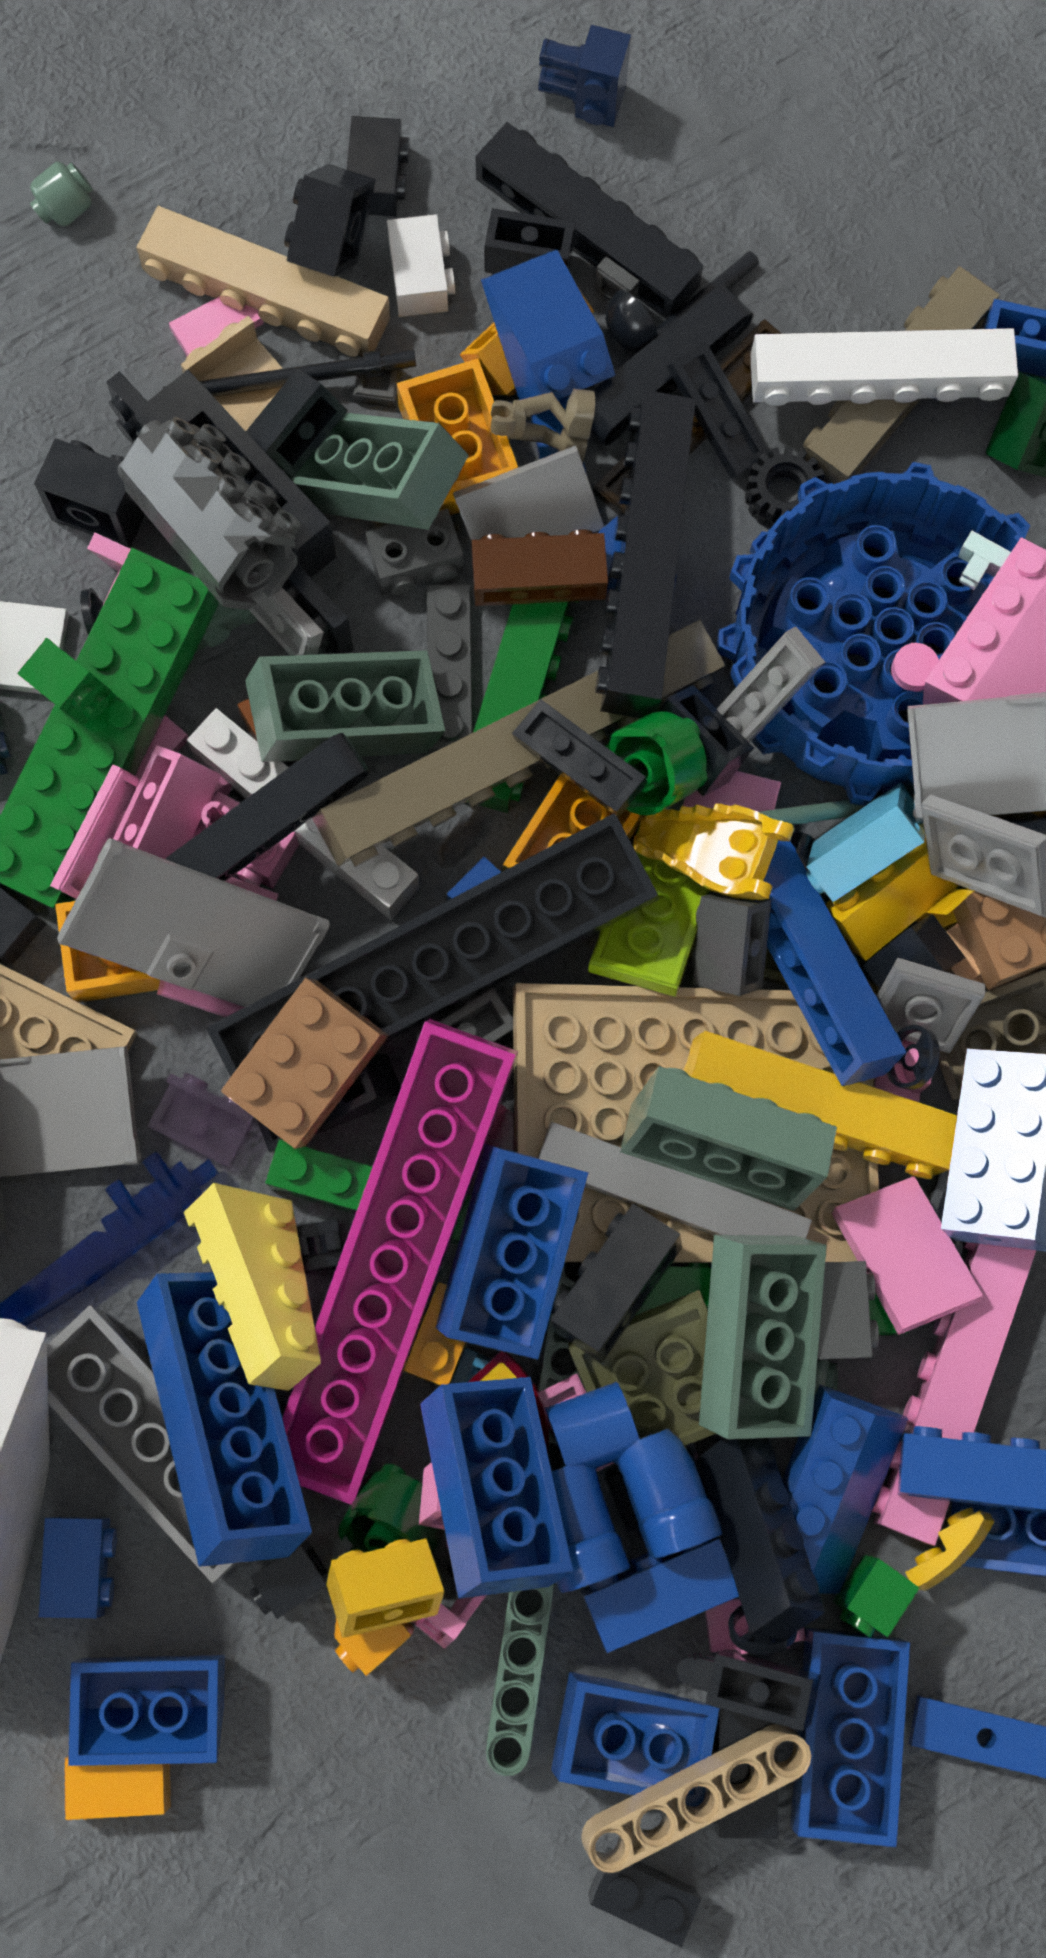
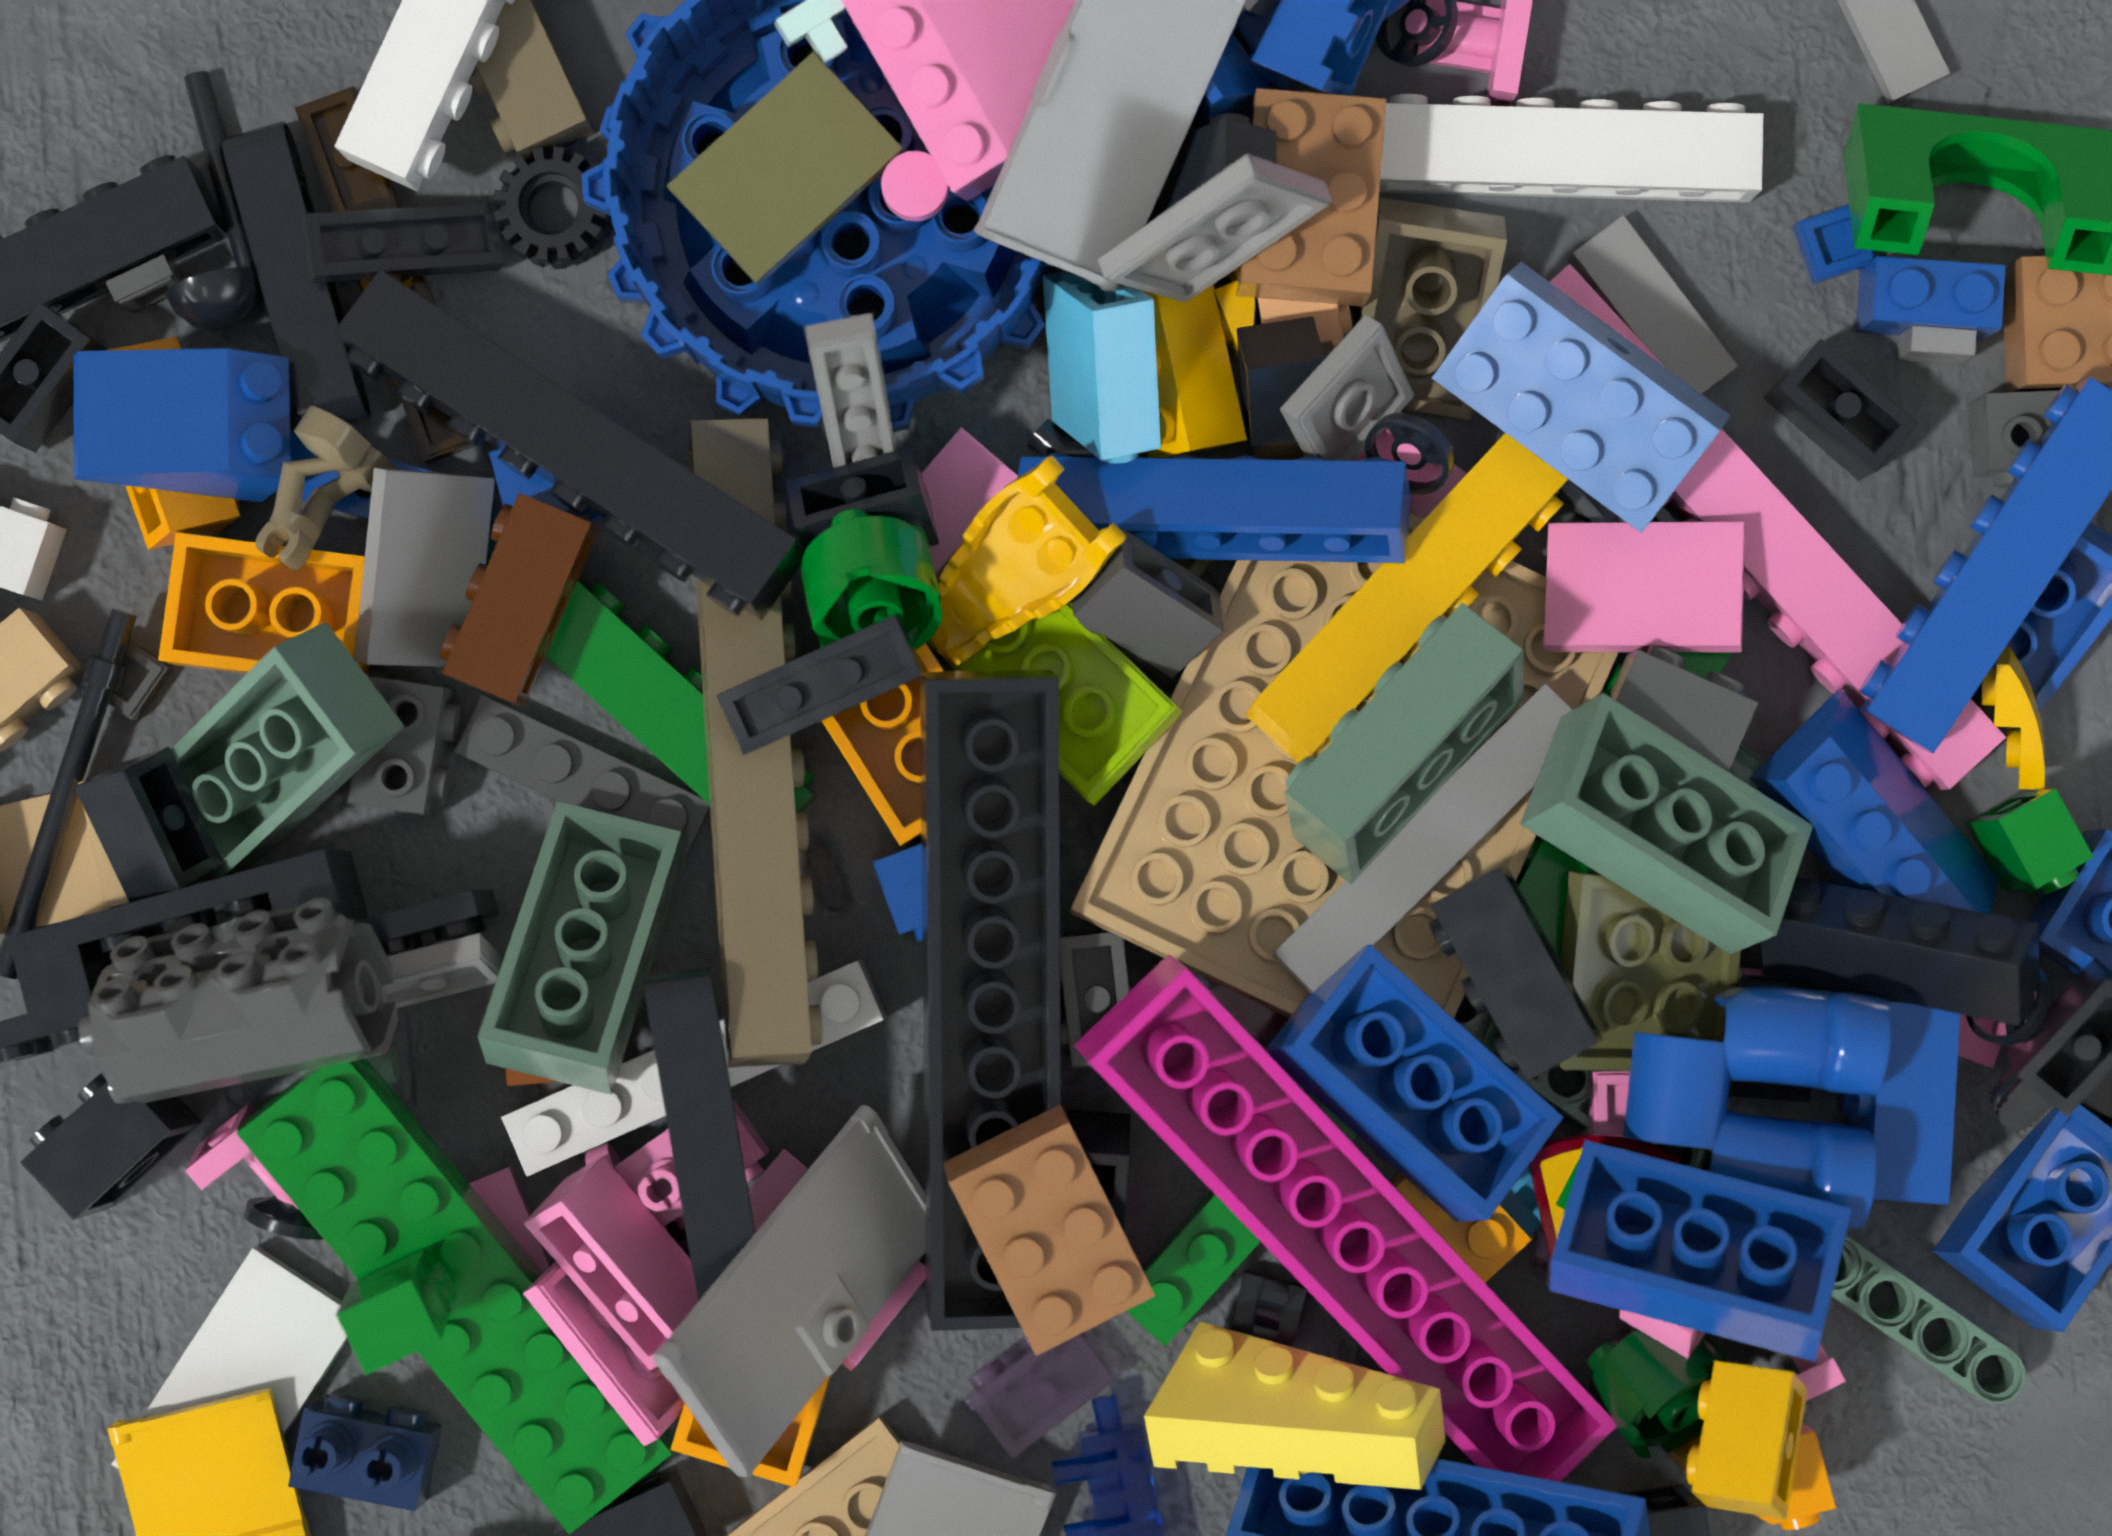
camera: 55 degrees left, 10 degrees up
(814, 812) = (1019, 413): sand green bar -> none
(883, 586) = (785, 168): none -> olive tile
(950, 901) = (1236, 300): yellow sticker -> none

